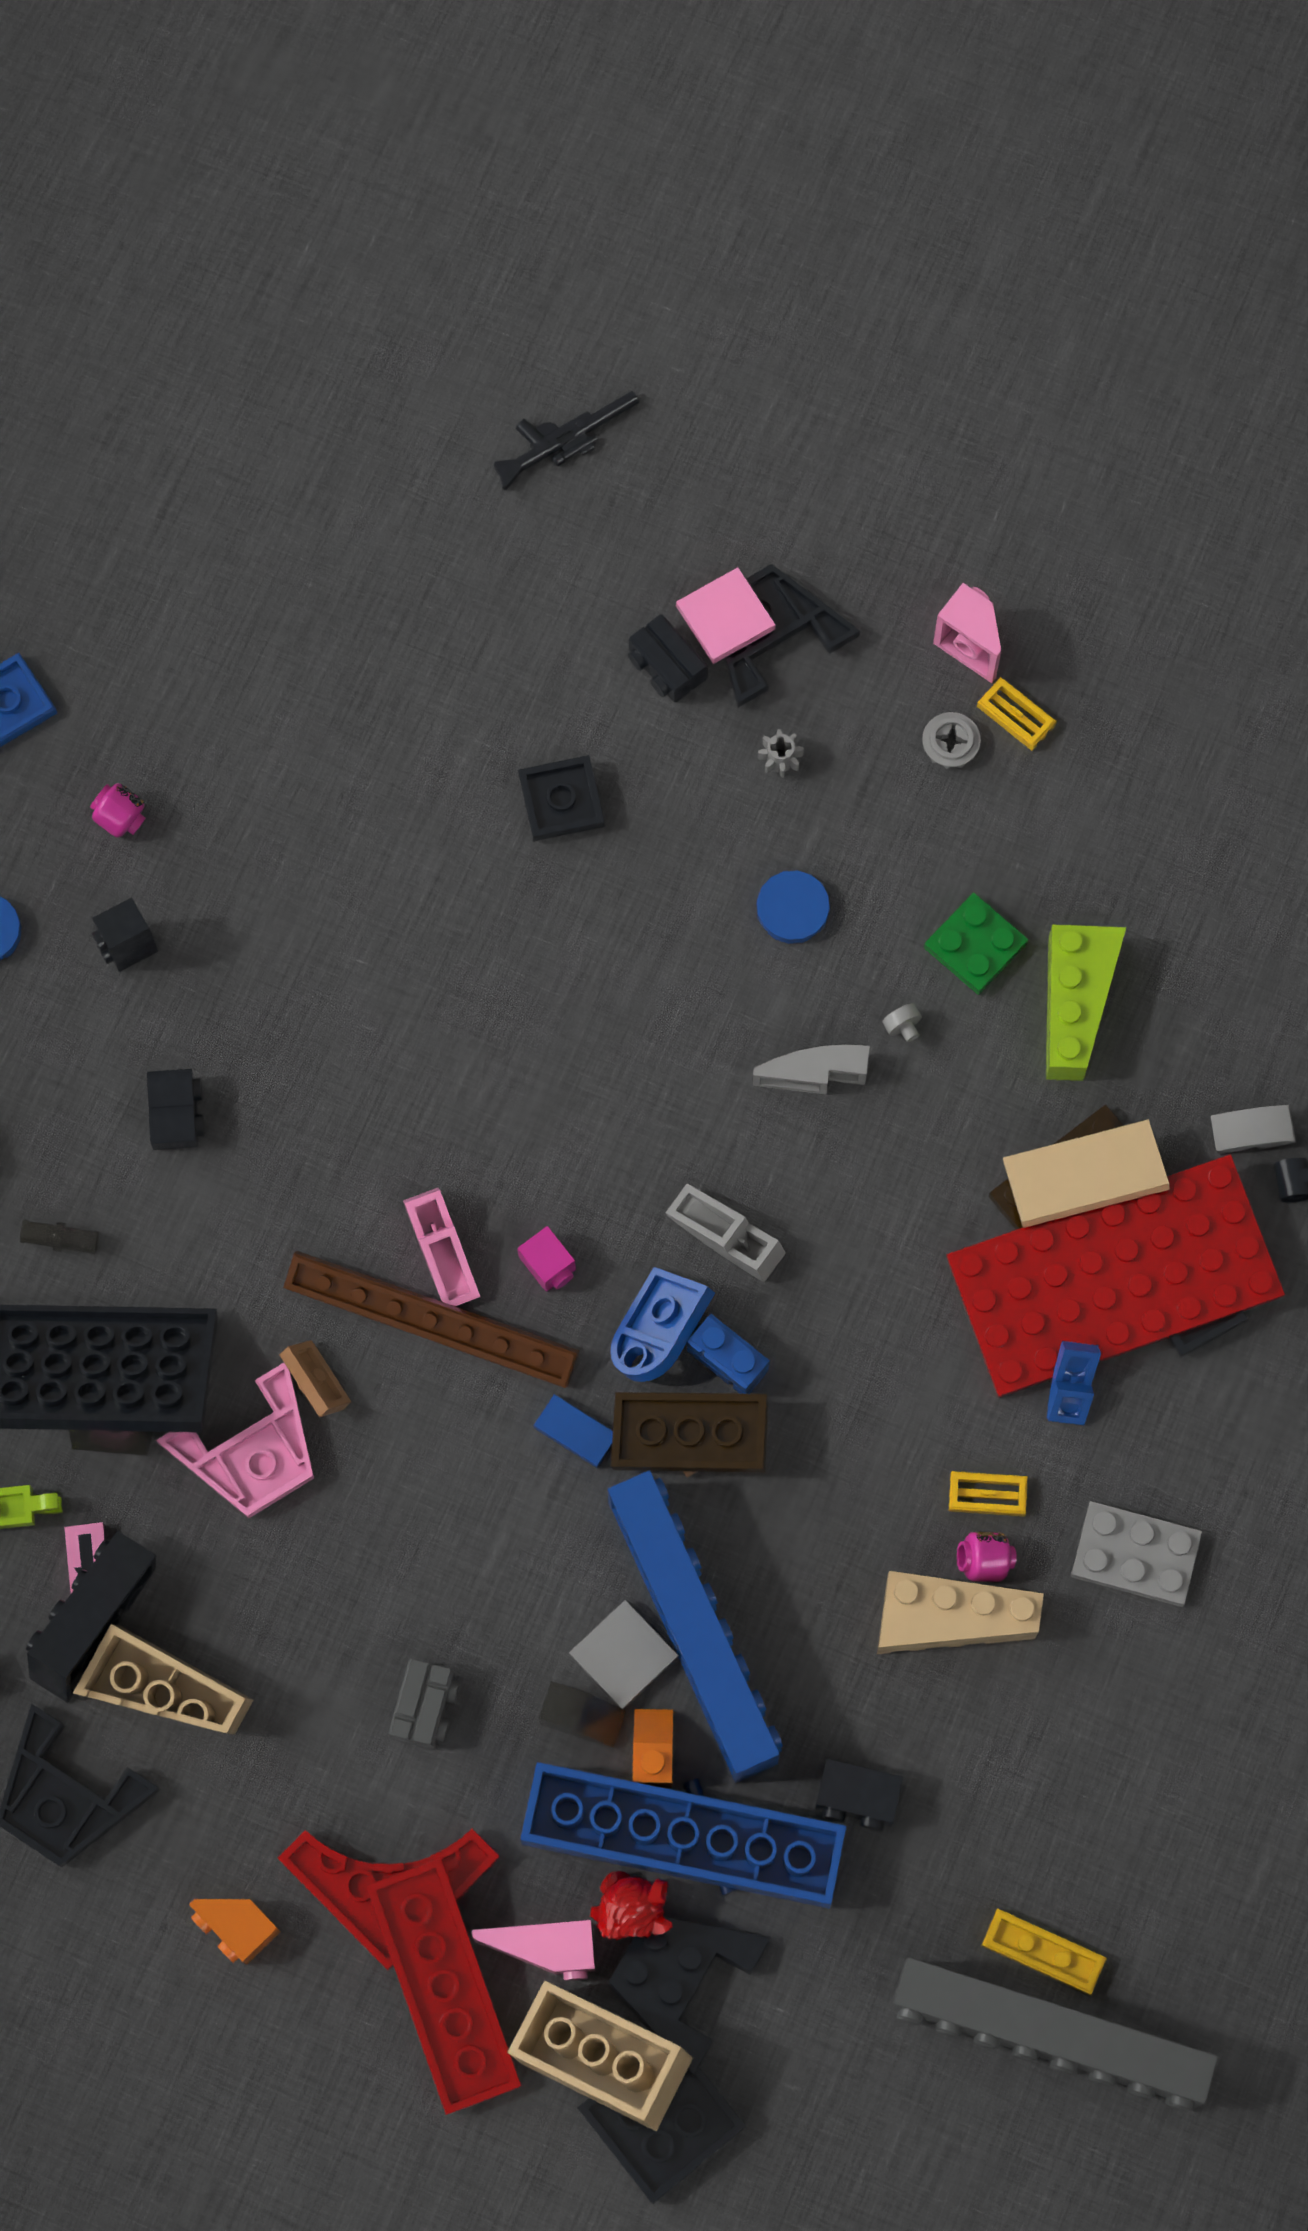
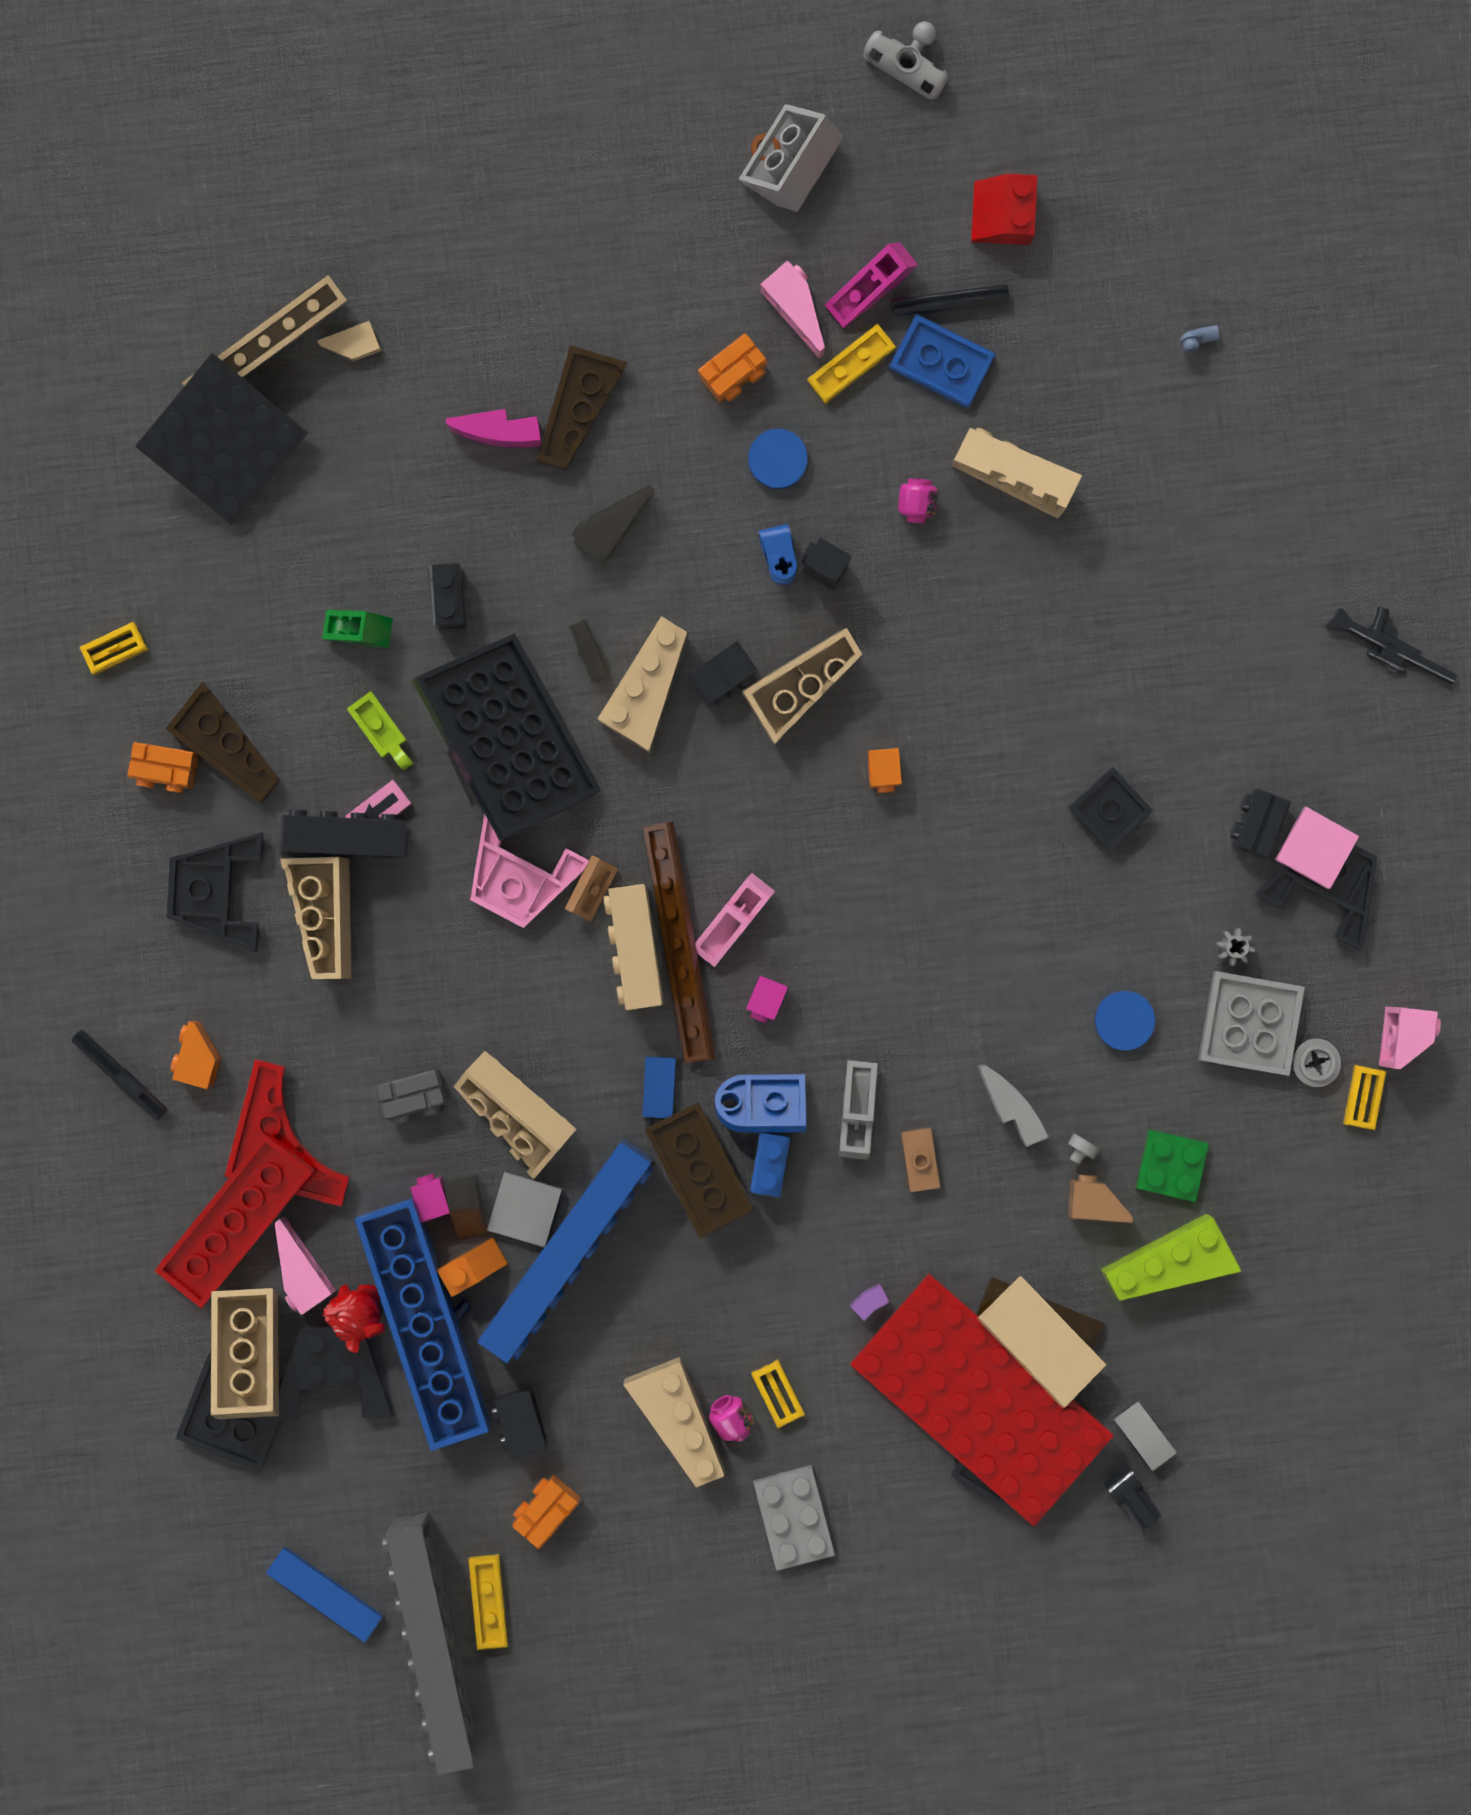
camera: 60 degrees right, 15 degrees up
(77, 980) = (779, 549): none -> blue piece
(130, 452) = (1192, 339): none -> sand blue arm
(144, 1207) = (645, 688): none -> tan wedge
(154, 695) = (1016, 472): none -> tan wedge
(201, 2028) = (119, 1075): none -> black axle
(234, 1046) = (793, 688): none -> tan wedge
(377, 1000) = (884, 769): none -> orange brick
(406, 1362) = (635, 947): none -> tan brick
(511, 1601) = (514, 1112): none -> tan wedge
(548, 1746) = (430, 1197): none -> dark pink brick
(818, 1198) = (920, 1159): none -> medium nougat plate
(871, 781) = (1251, 1023): none -> light grey plate
(930, 2137) = (324, 1594): none -> blue tile
(941, 1336) = (869, 1301): none -> medium lavender piece
(968, 1039) = (1095, 1201): none -> medium nougat slope
(975, 1823) = (545, 1511): none -> orange brick
(1071, 1383) = (885, 1411): blue slope -> none

